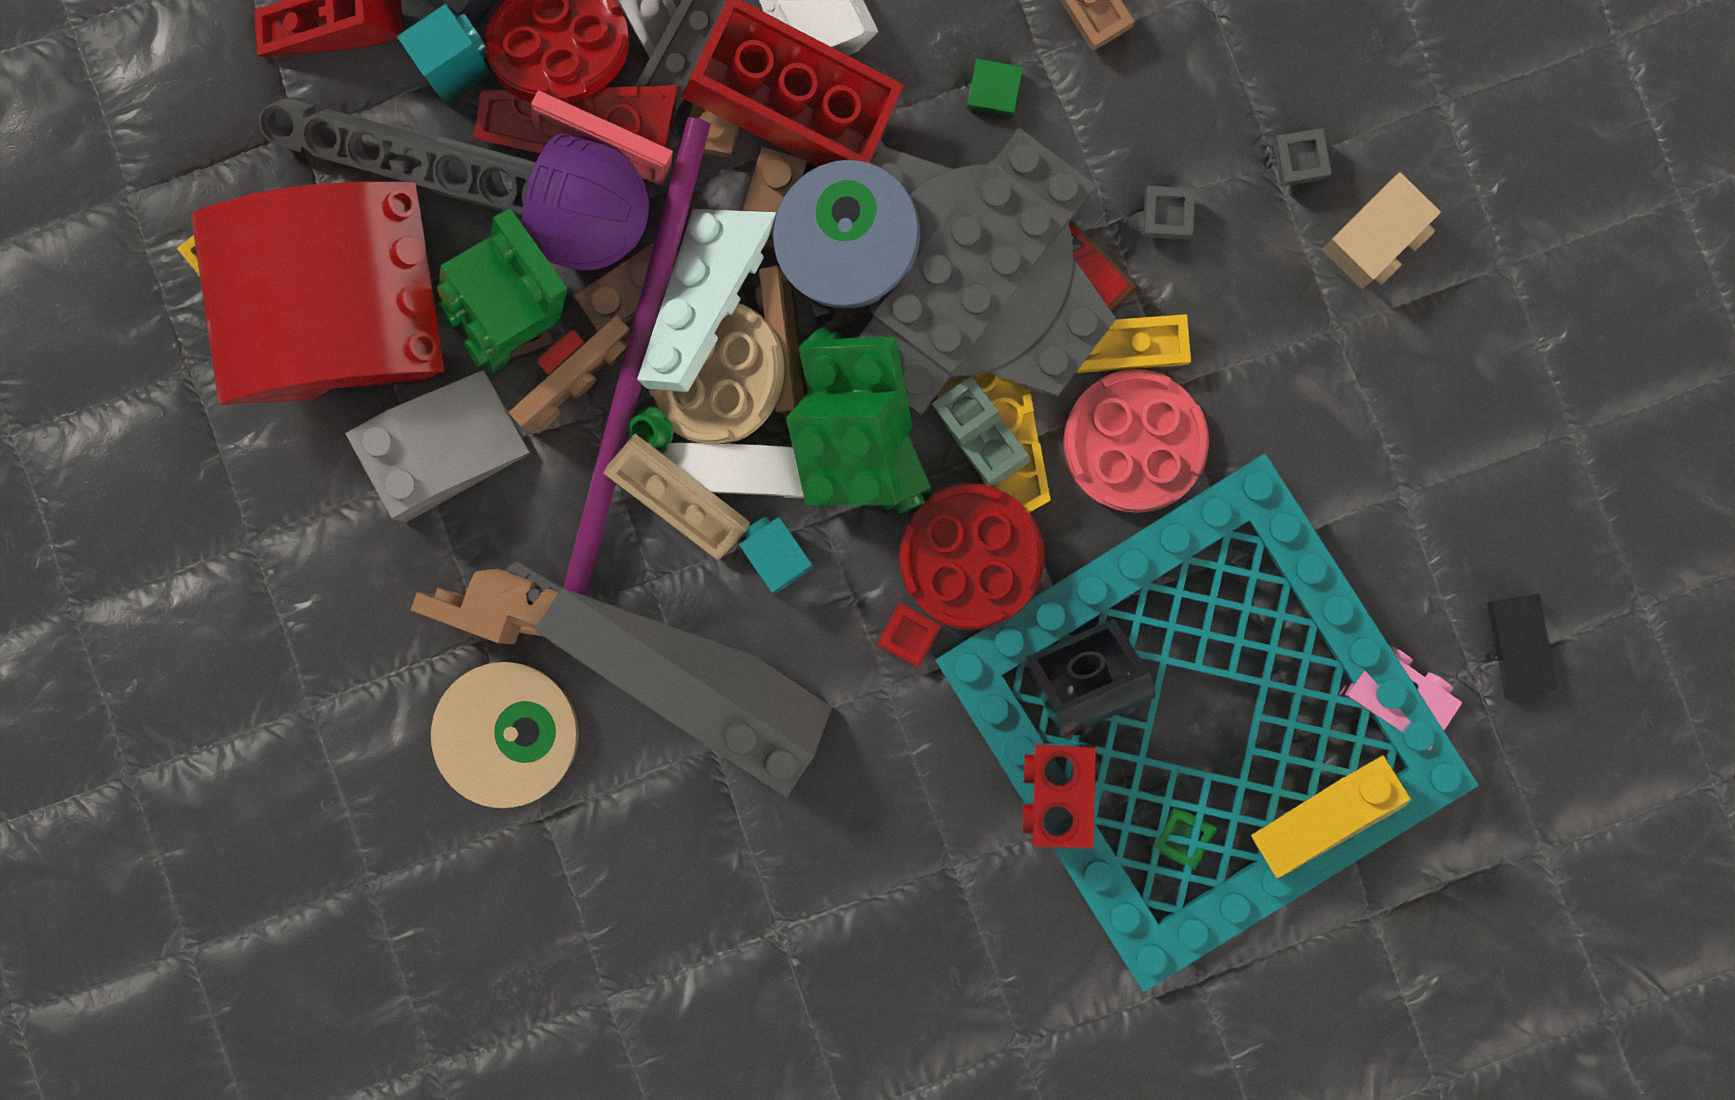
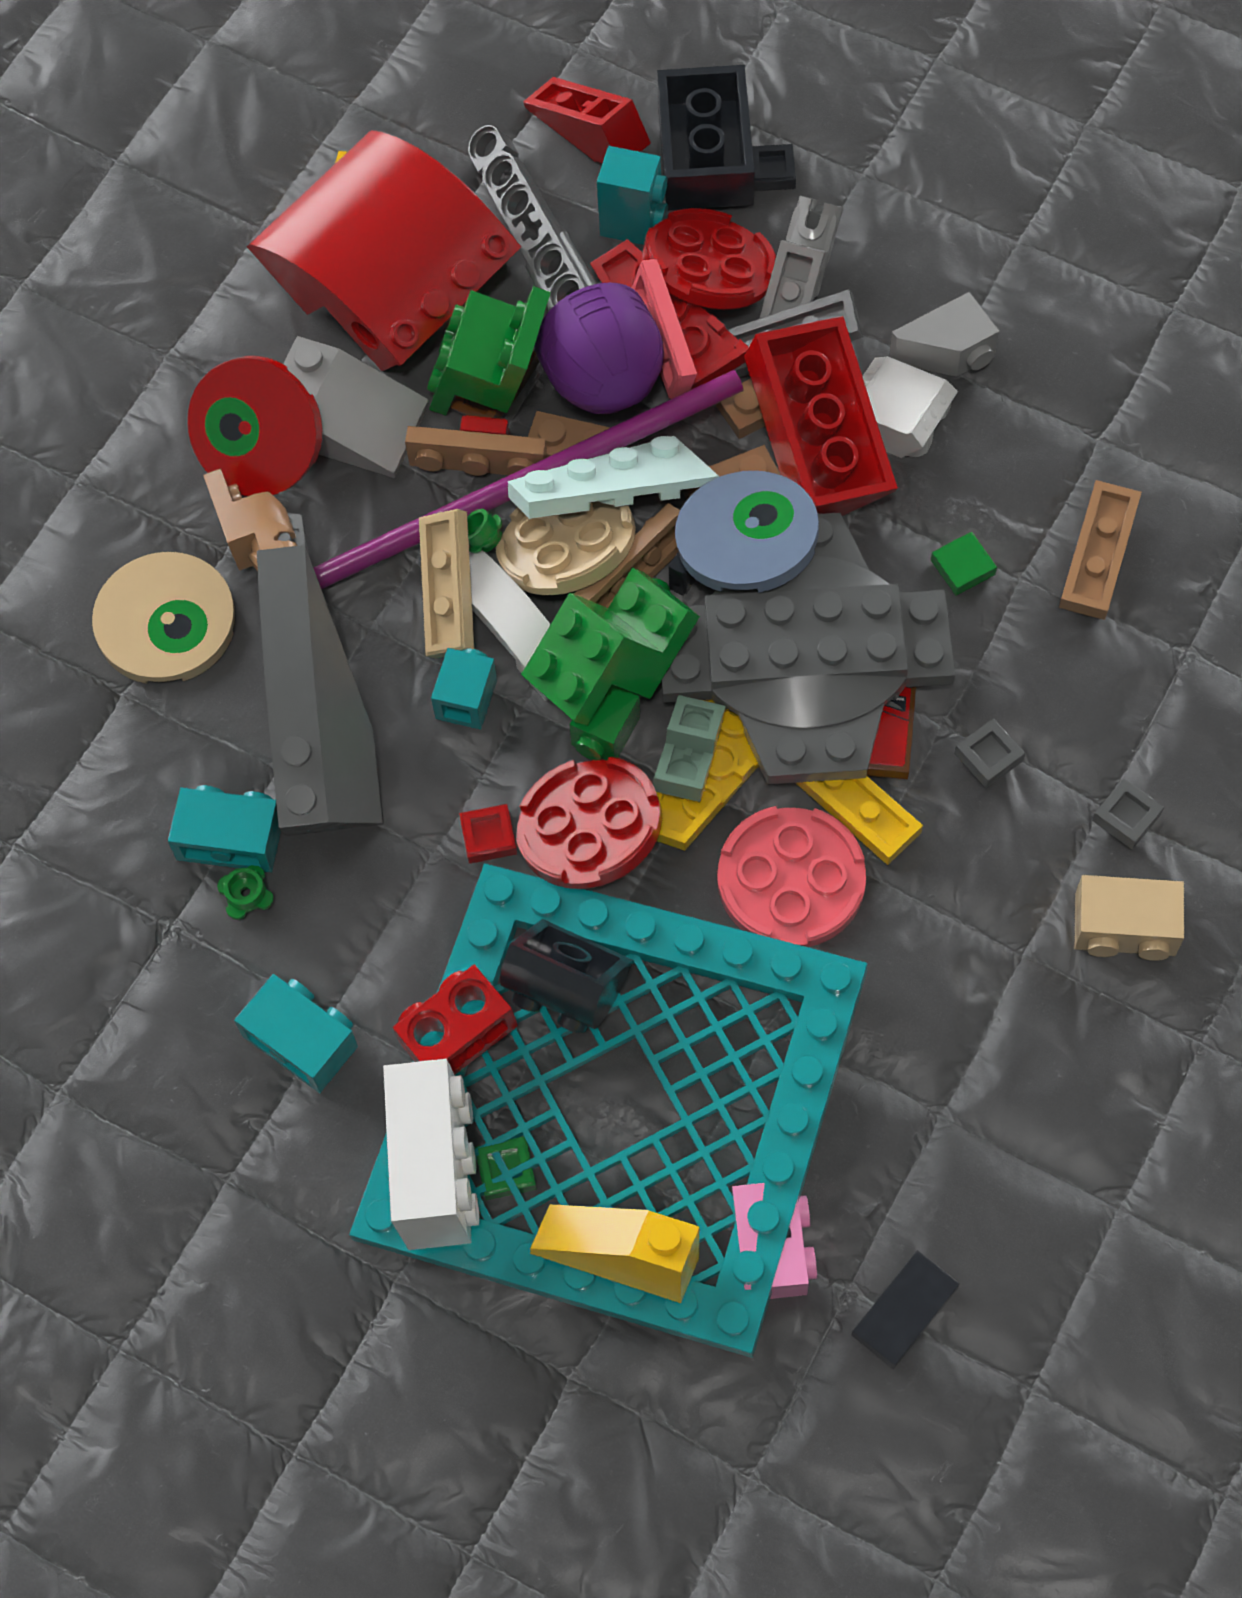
camera: 50 degrees right, 20 degrees down
(402, 534) = (255, 425): none -> red tile
(740, 831) = (225, 828): none -> teal brick
(789, 860) = (238, 880): none -> green plate
(956, 907) = (297, 1031): none -> teal brick
(1160, 900) = (429, 1154): none -> white brick

